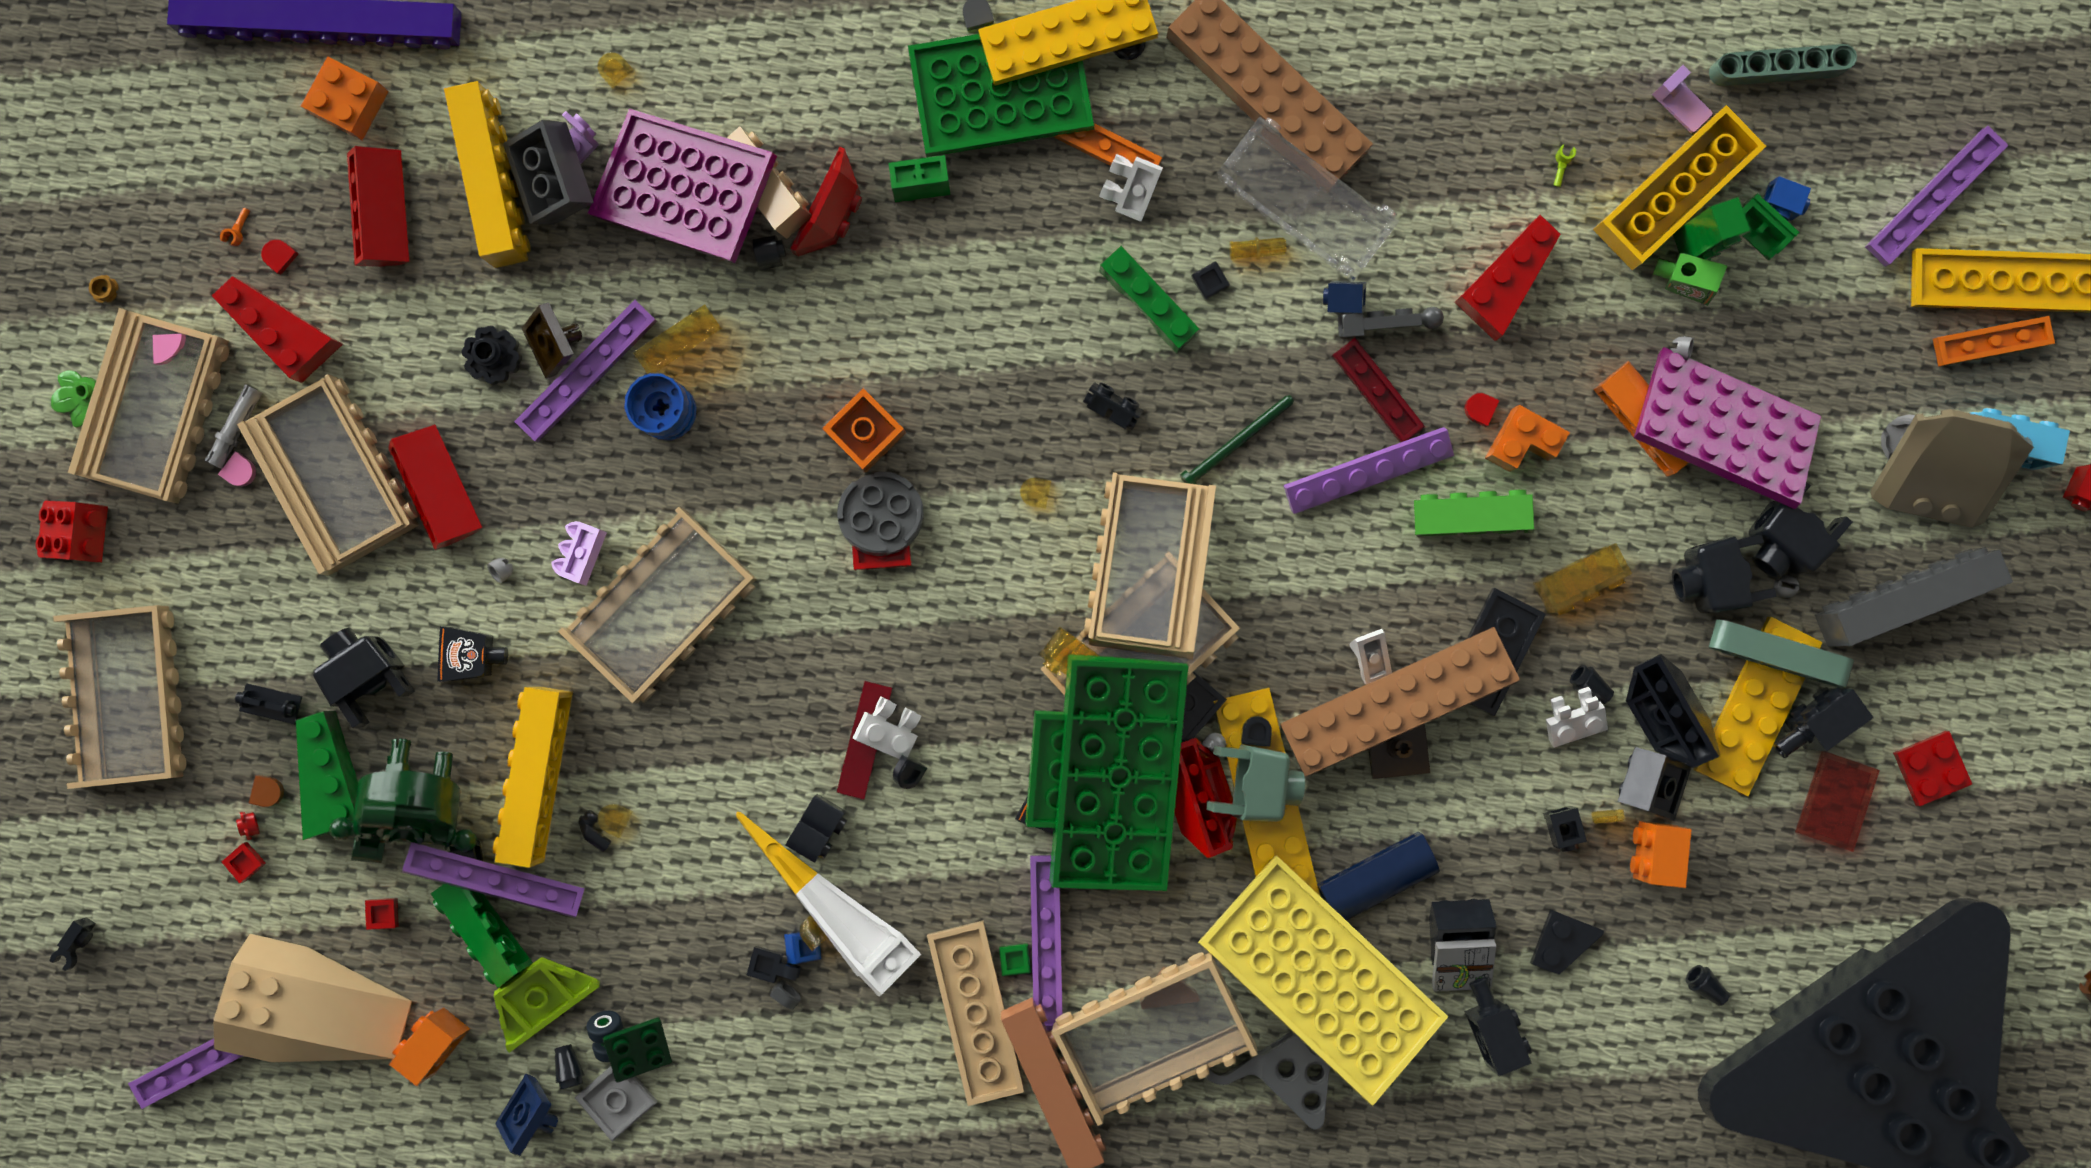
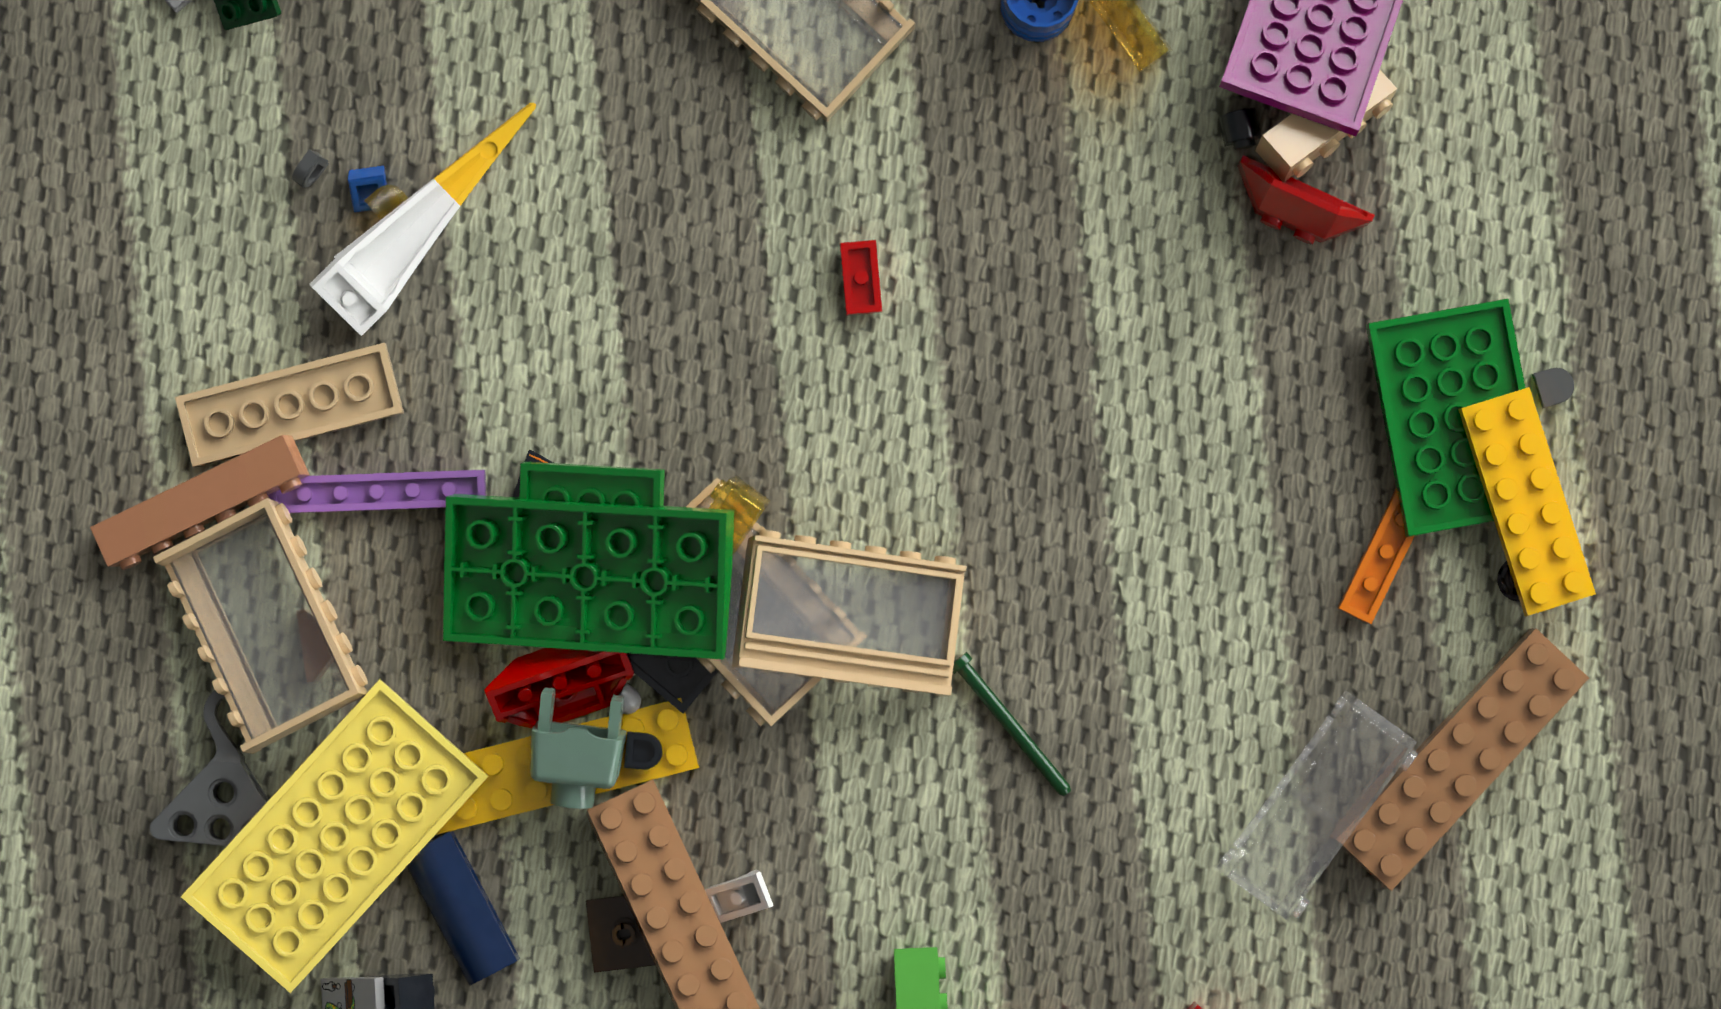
camera: 90 degrees right, 0 degrees up
(768, 964) = (345, 146): black plate -> none
(816, 828) = (516, 203): black brick -> none
(859, 756) = (627, 261): dark red tile -> none
(864, 430) = (1014, 252): orange brick -> none
(880, 514) = (910, 275): dark grey tile -> none
(885, 736) = (631, 286): white plate -> none
(908, 772) = (586, 316): black tile -> none
(919, 178) = (1337, 316): green hinge -> none
(1014, 959) = (355, 453): green tile -> none
(1035, 492) = (941, 470): clear yellow tile -> none
(1123, 409) = (1048, 582): black hinge -> none
(1138, 188) = (1330, 594): white plate -> none
(1150, 298) = (1188, 609): green arch -> none
(1210, 280) = (1215, 688): black tile -> none
(1257, 248) = (1258, 748): clear yellow axle -> none
(1345, 297) = (1195, 859): dark blue brick -> none
(1354, 324) = (1161, 870): dark grey plate -> none
(1369, 470) = (976, 892): medium lavender plate -> none
(1378, 391) = (1077, 904): dark red tile -> none

